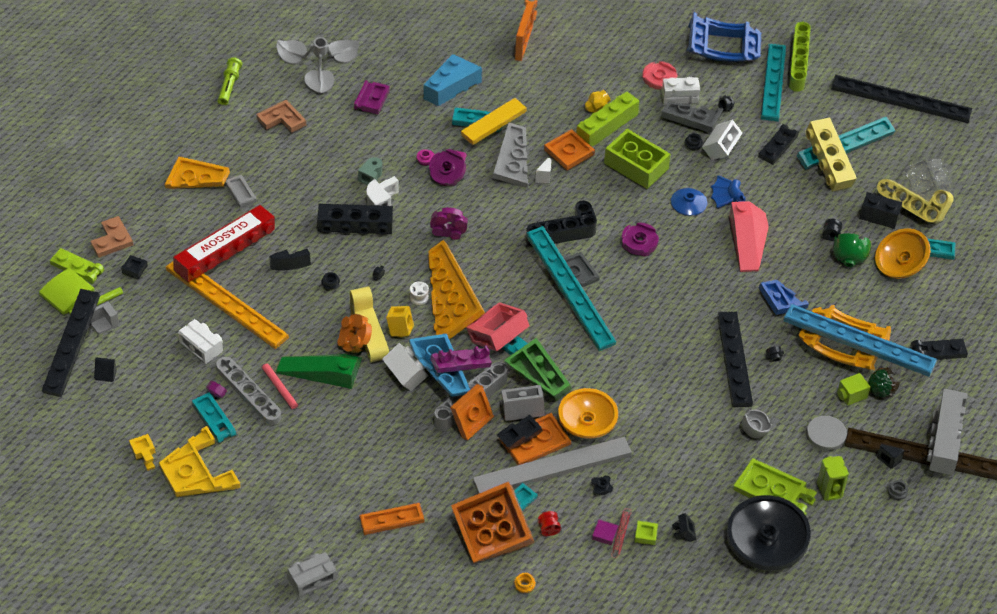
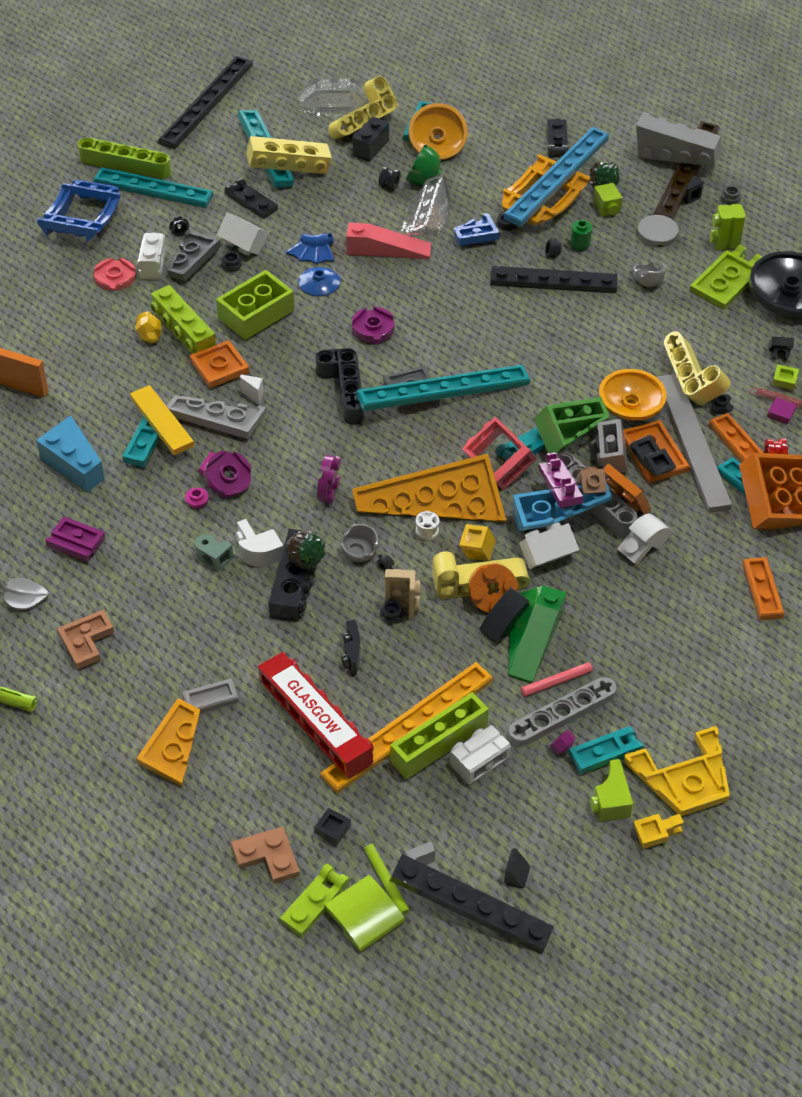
camera: 80 degrees left, 0 degrees up
(173, 422) = (612, 798): none -> lime arch
(212, 313) = (438, 735): none -> lime brick
(330, 342) = (503, 614): none -> black slope
(339, 280) = (403, 587): none -> tan bracket
(361, 209) = (305, 549): none -> dark green piece
(390, 252) = (359, 543): none -> light grey hair
(429, 429) = (644, 534): none -> white brick
(465, 376) = (592, 480): none -> medium nougat bracket
(562, 497) = (734, 436): none -> orange tile
(618, 459) = (695, 383): none -> light yellow beam
(790, 259) = (428, 209): none -> clear wedge
(792, 369) = (581, 235): none -> green brick

